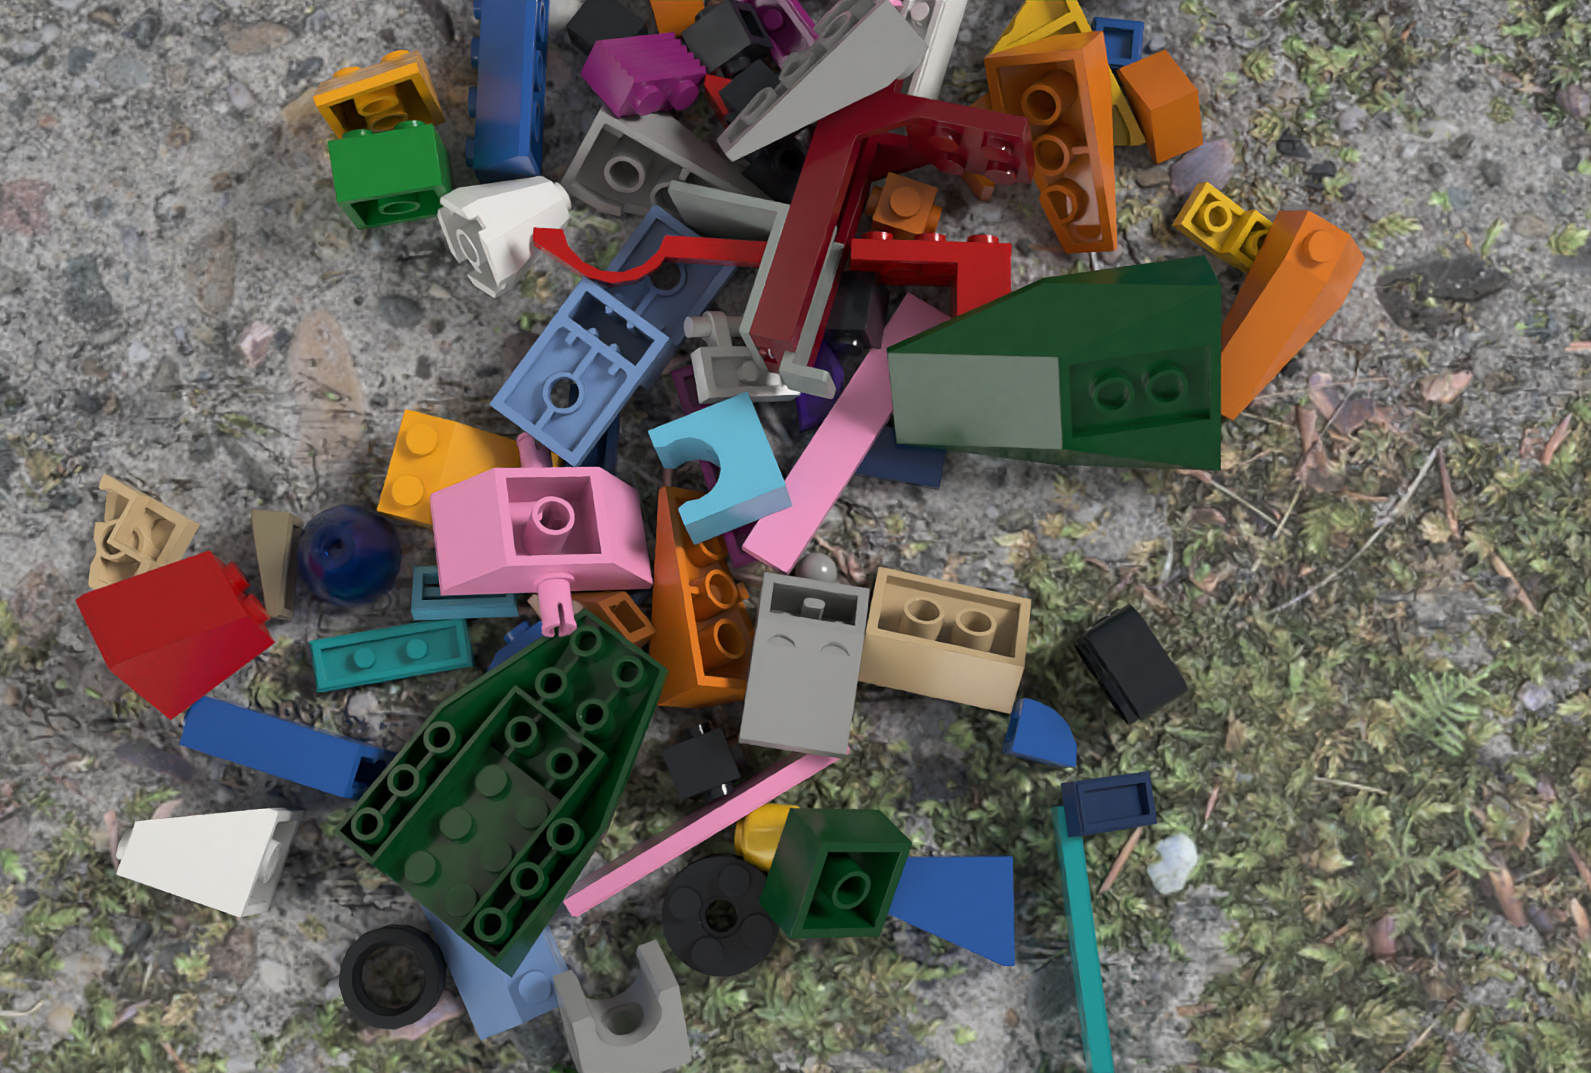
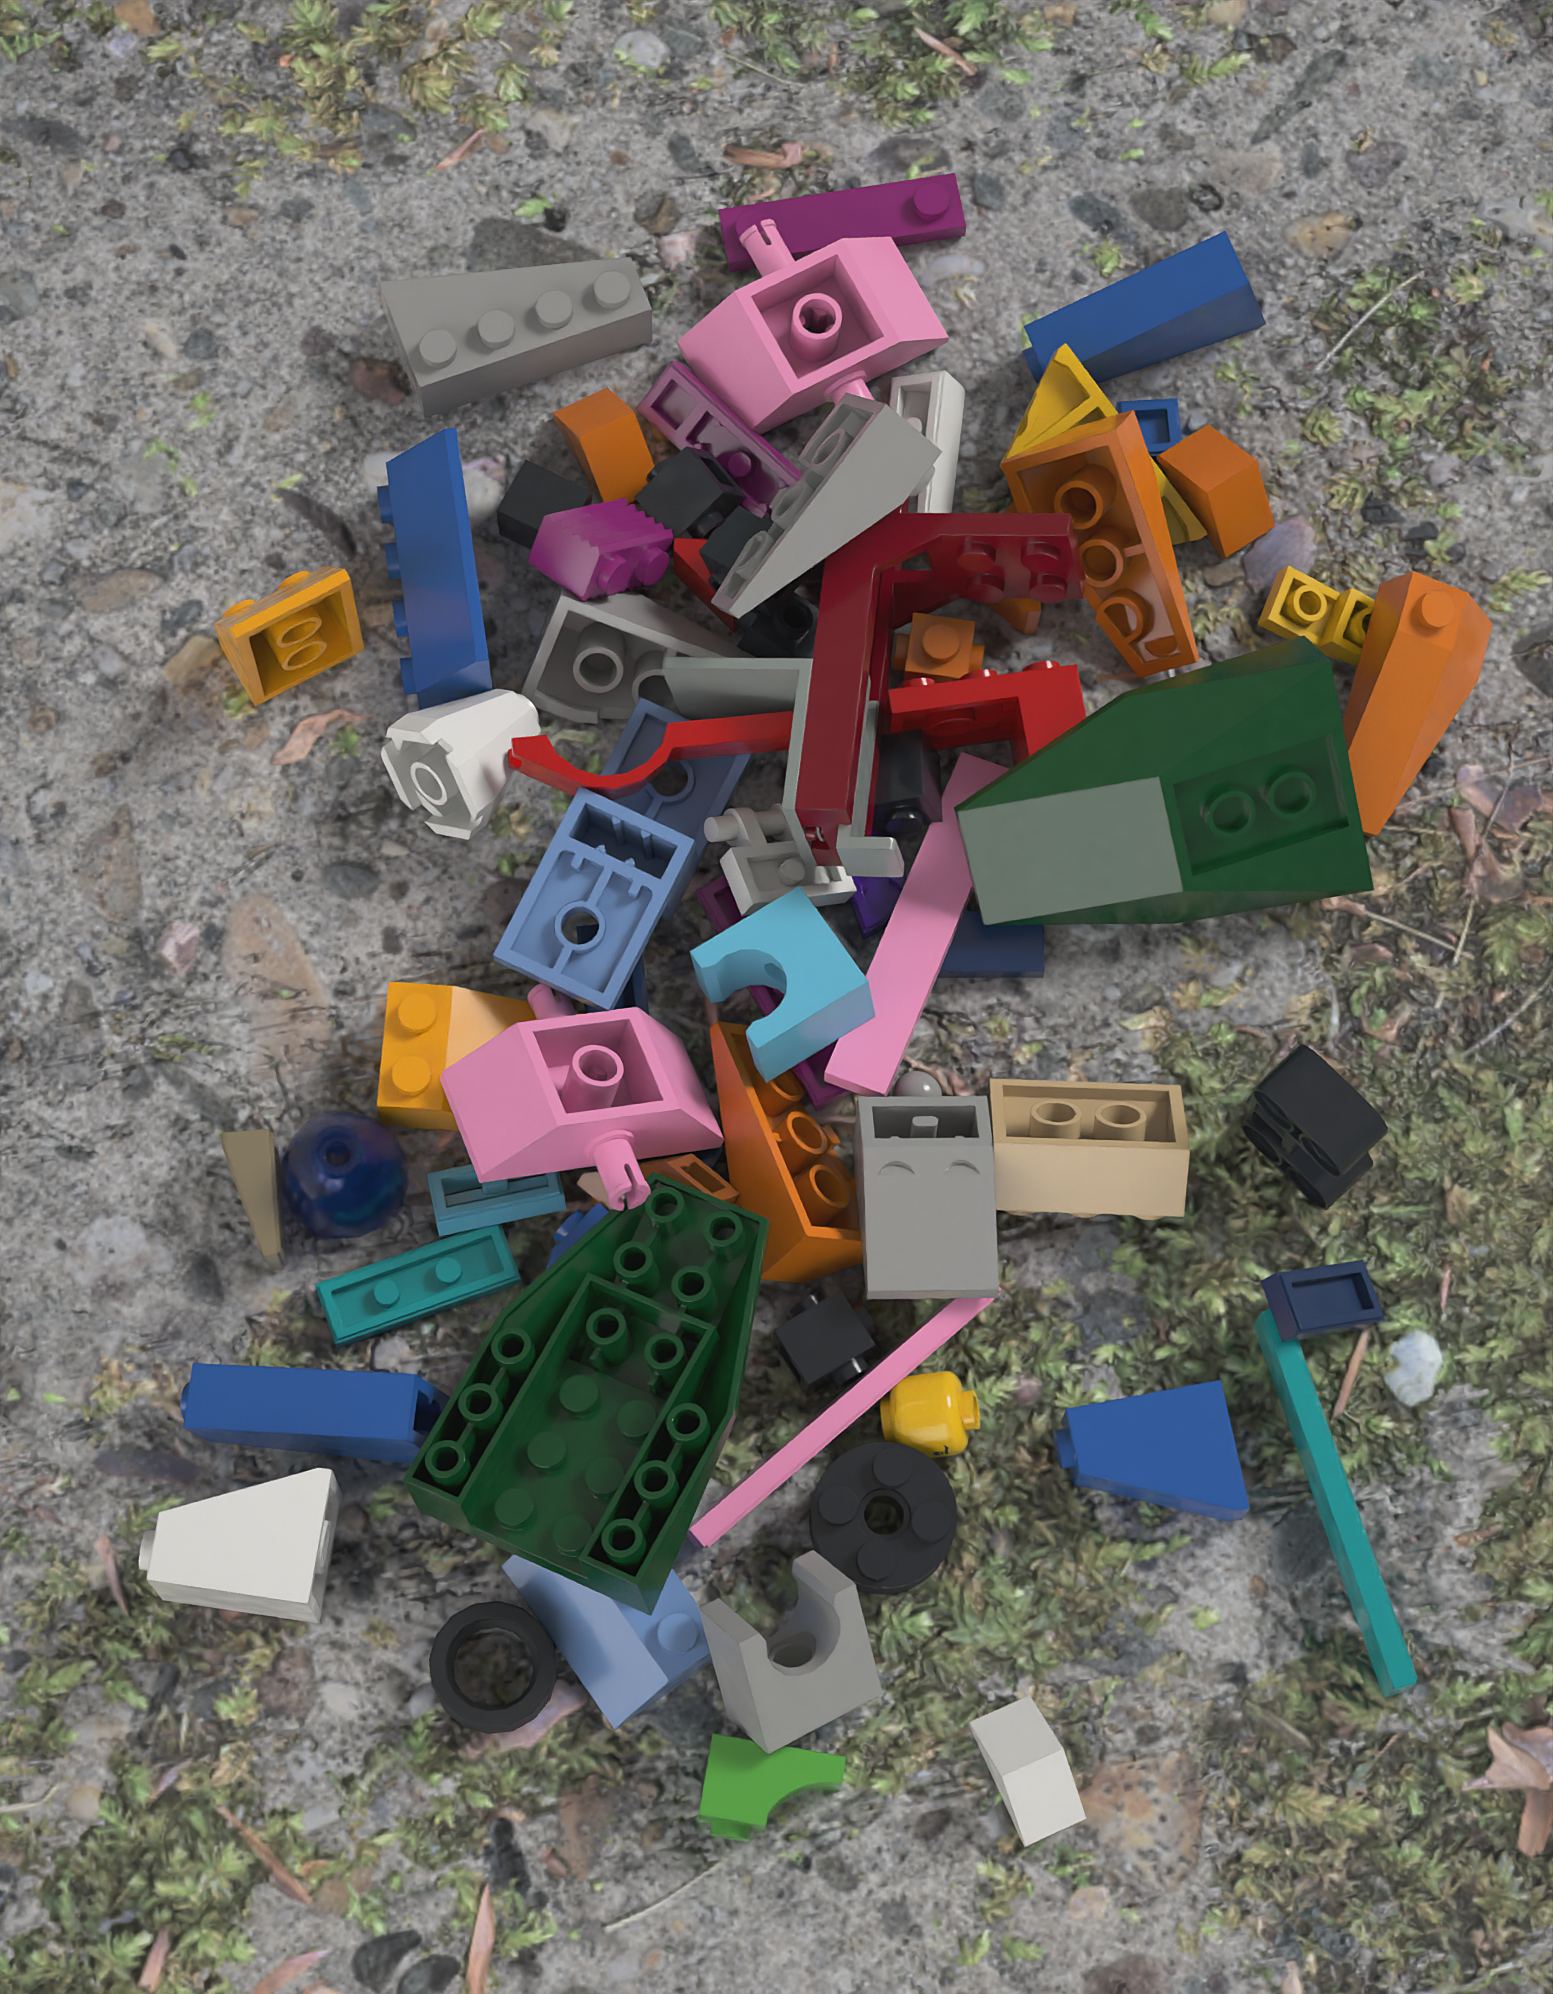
camera: 15 degrees left, 10 degrees down
(136, 534) = (81, 1208): tan slope -> none
(177, 629) = (163, 1286): red slope -> none
(391, 174) = (322, 714): green brick -> none
(834, 873) = (1013, 1430): dark green brick -> none
(1039, 735) = (1224, 1233): blue brick -> none

